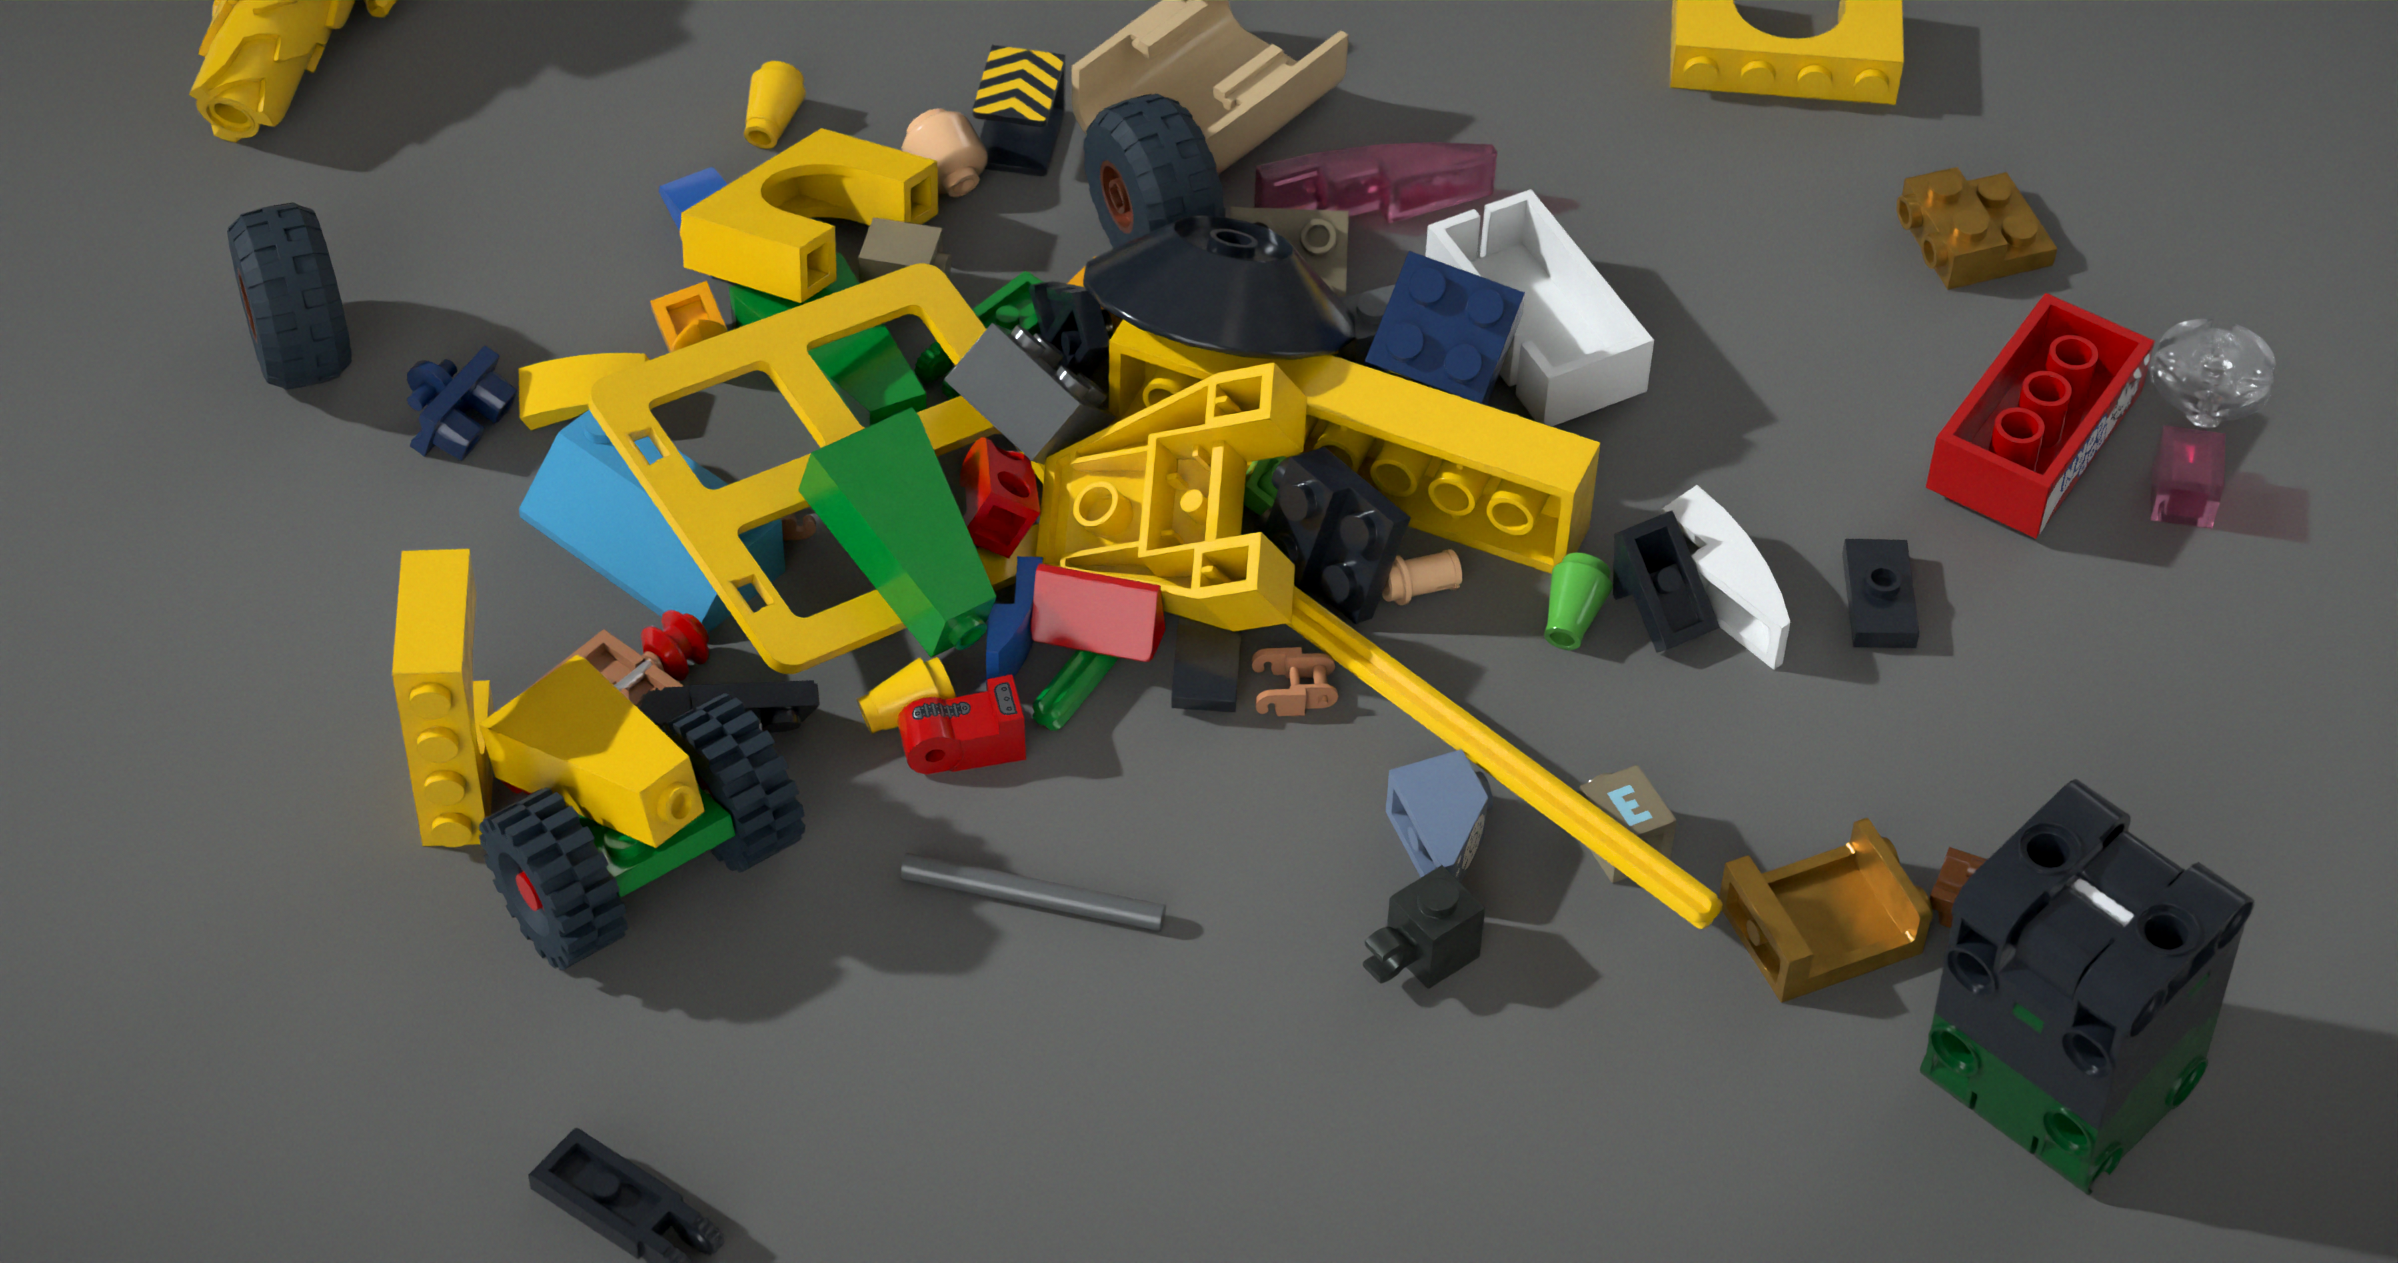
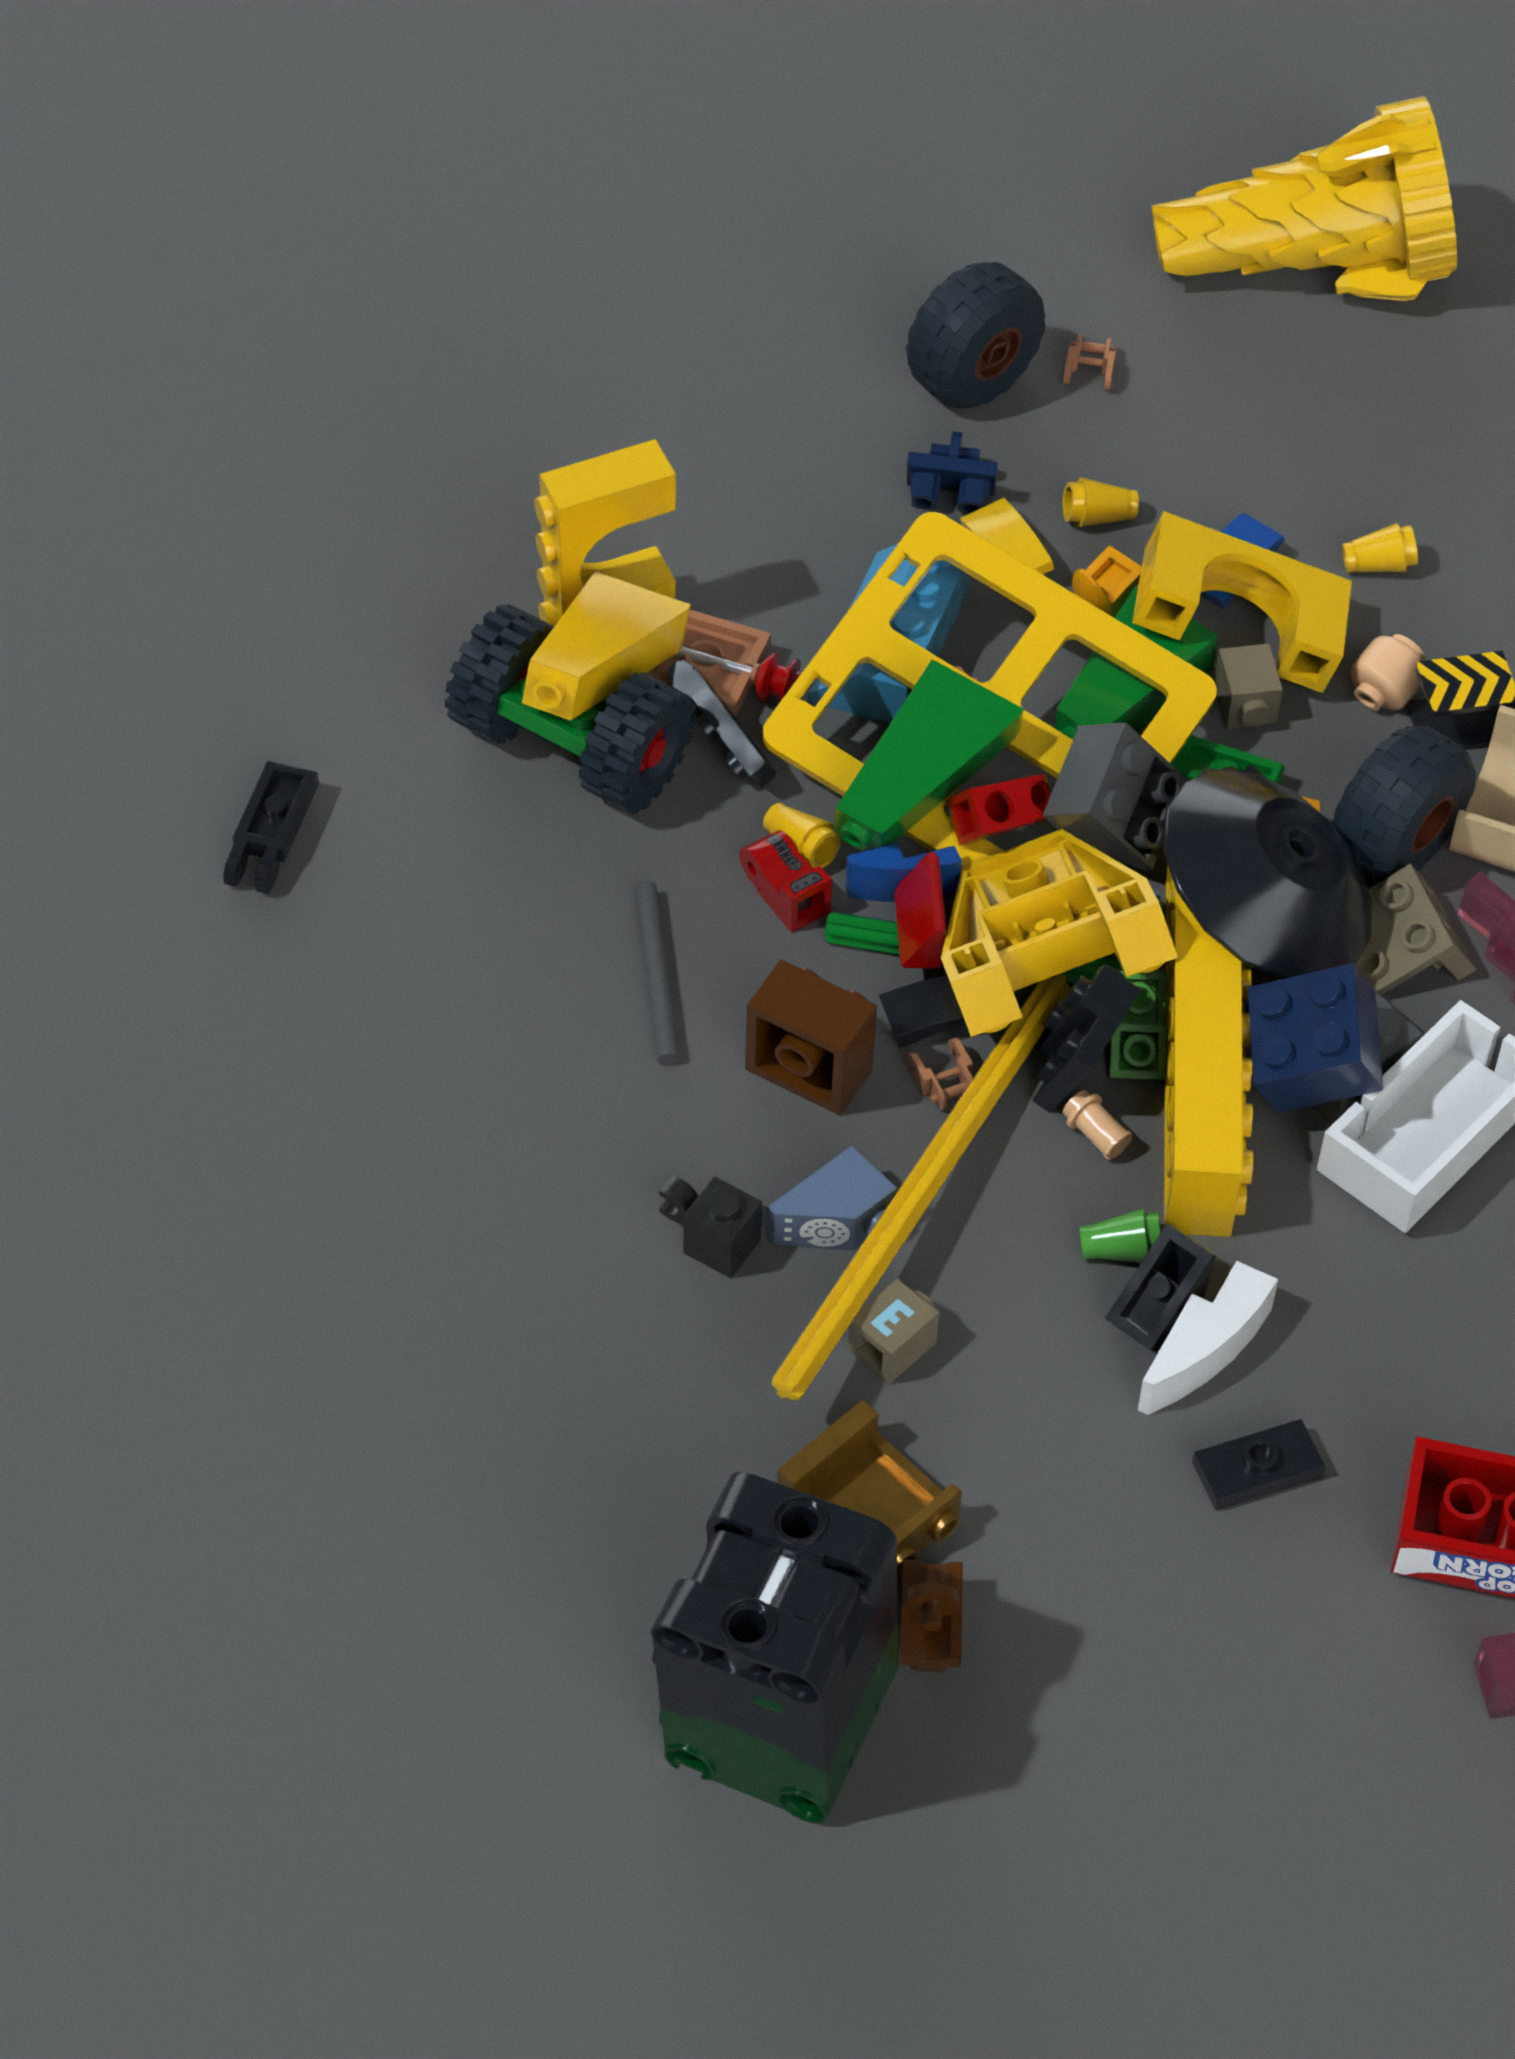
camera: 70 degrees right, 5 degrees up
(356, 226) = (1106, 363): none -> nougat piece
(568, 299) = (1096, 503): none -> yellow cone
(1226, 759) = (810, 1036): none -> reddish brown brick

